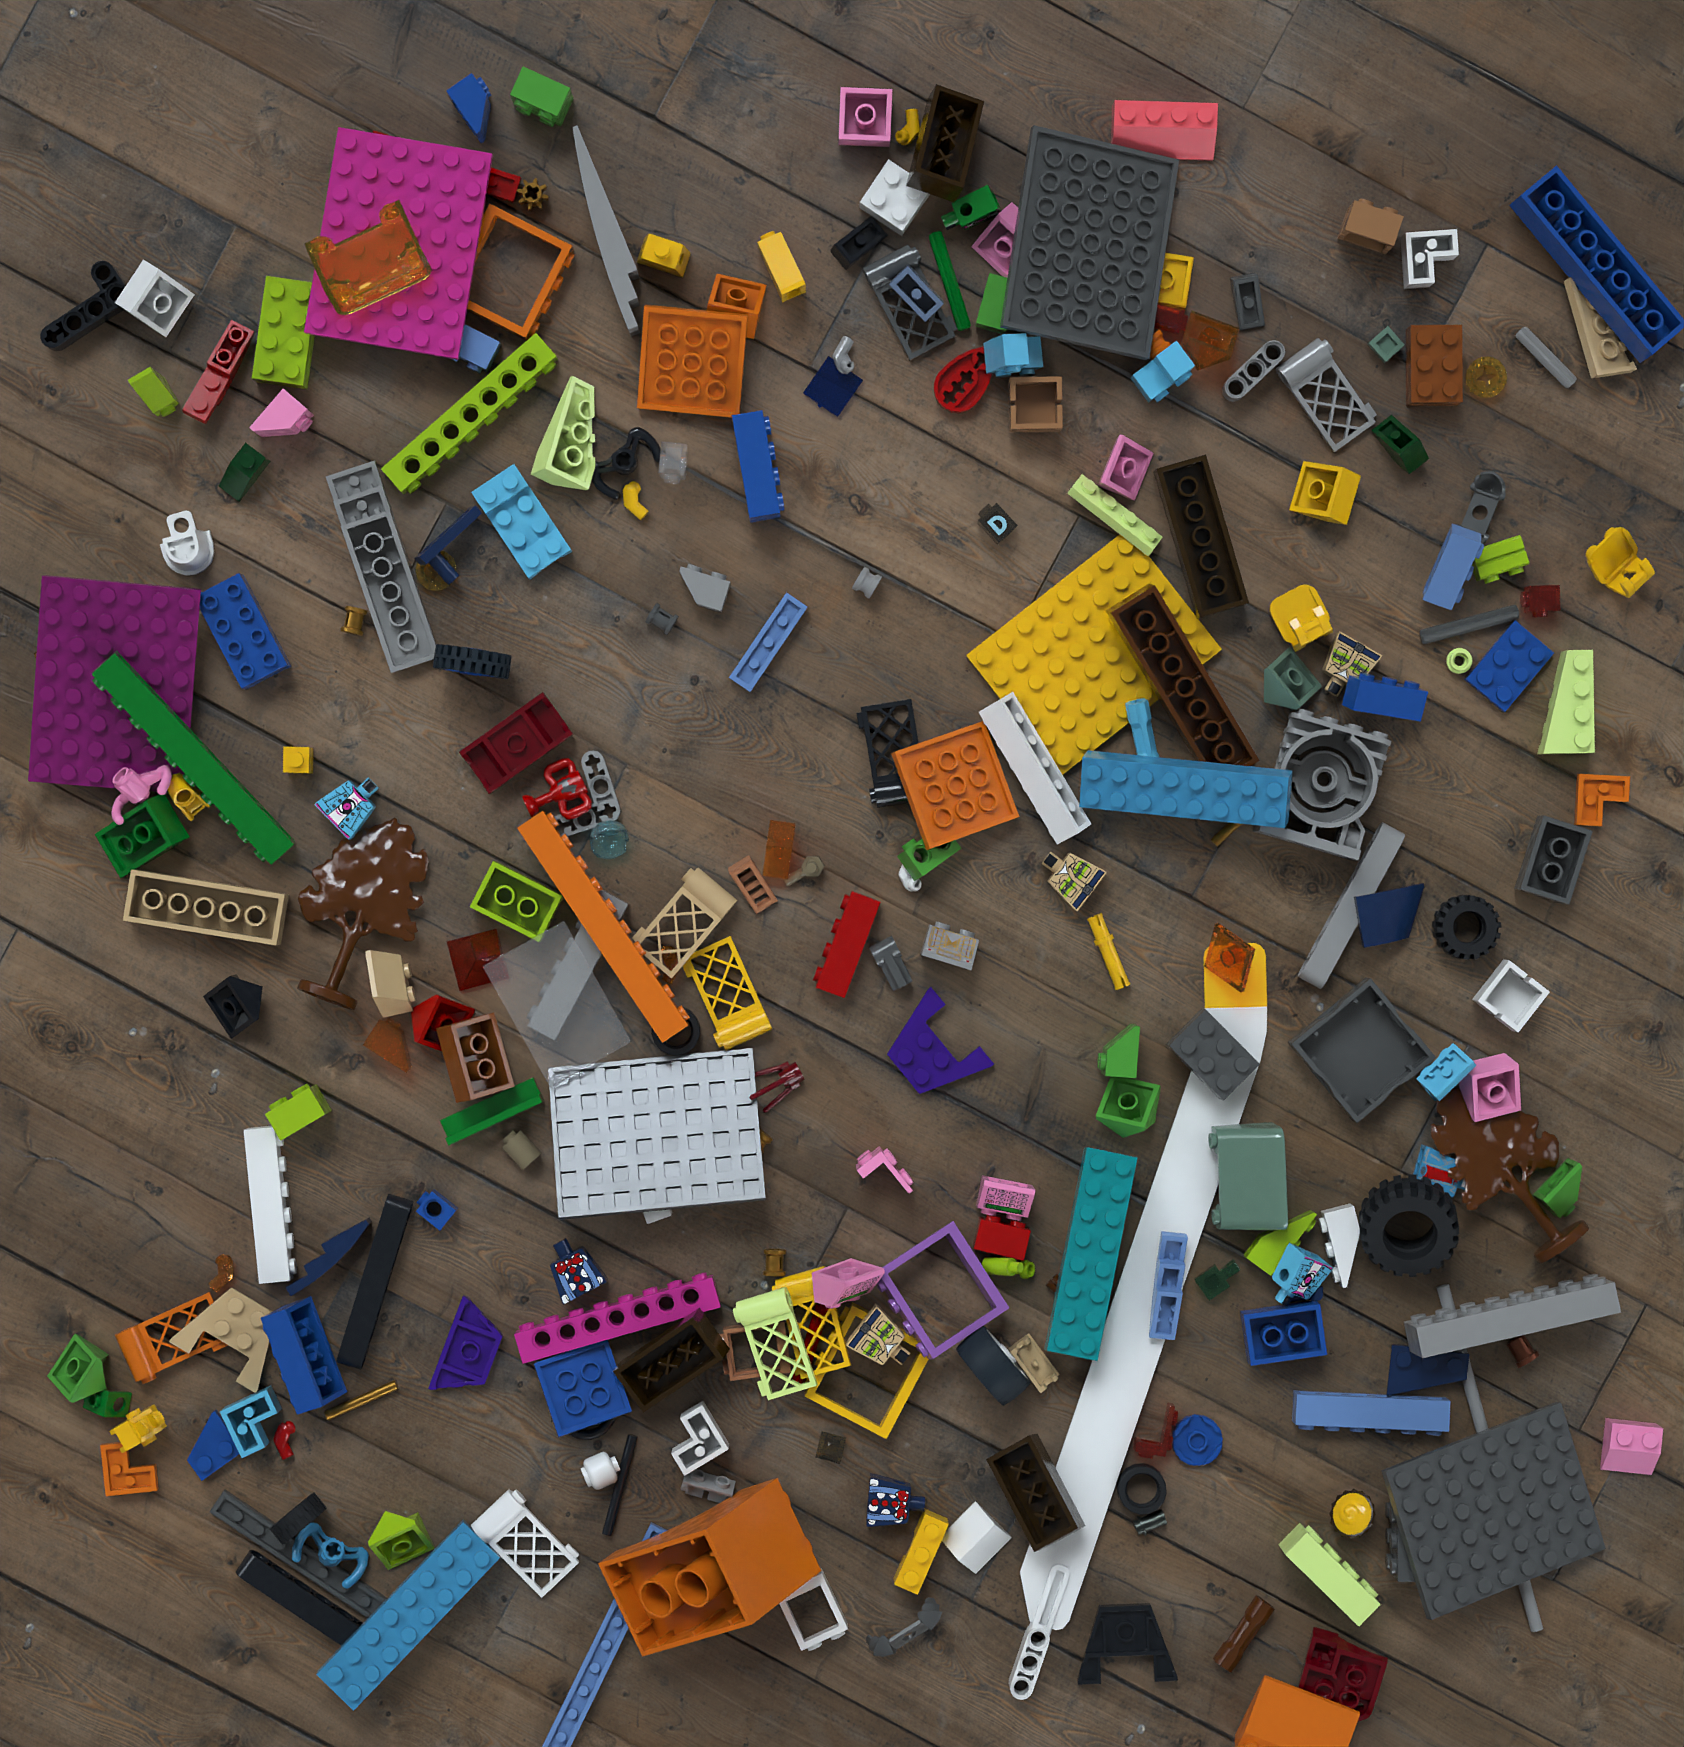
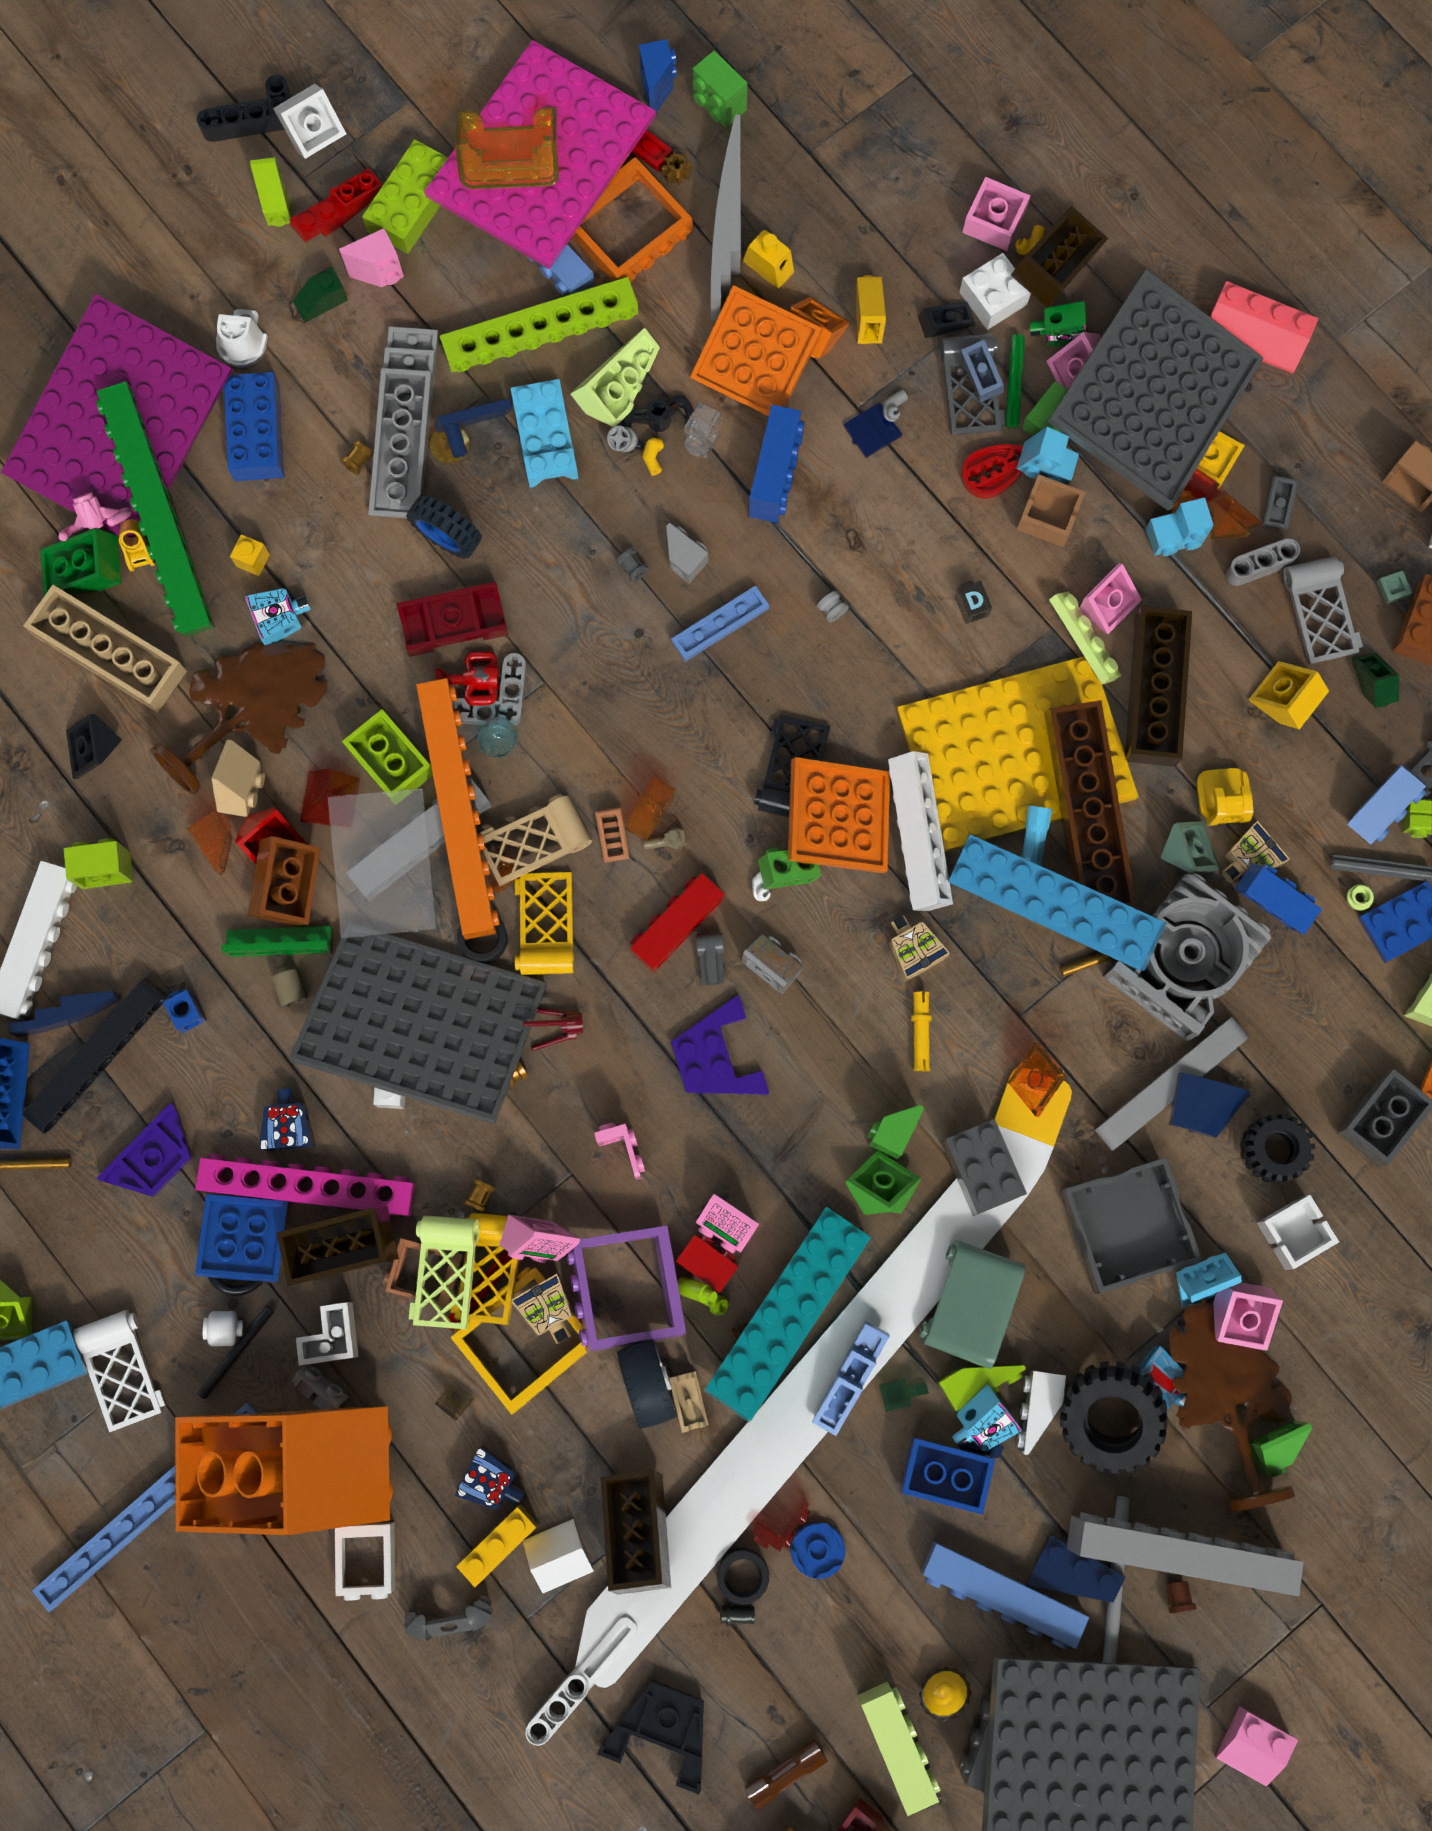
camera: 20 degrees right, 10 degrees down
(597, 504) = (616, 438): none -> light grey wheel

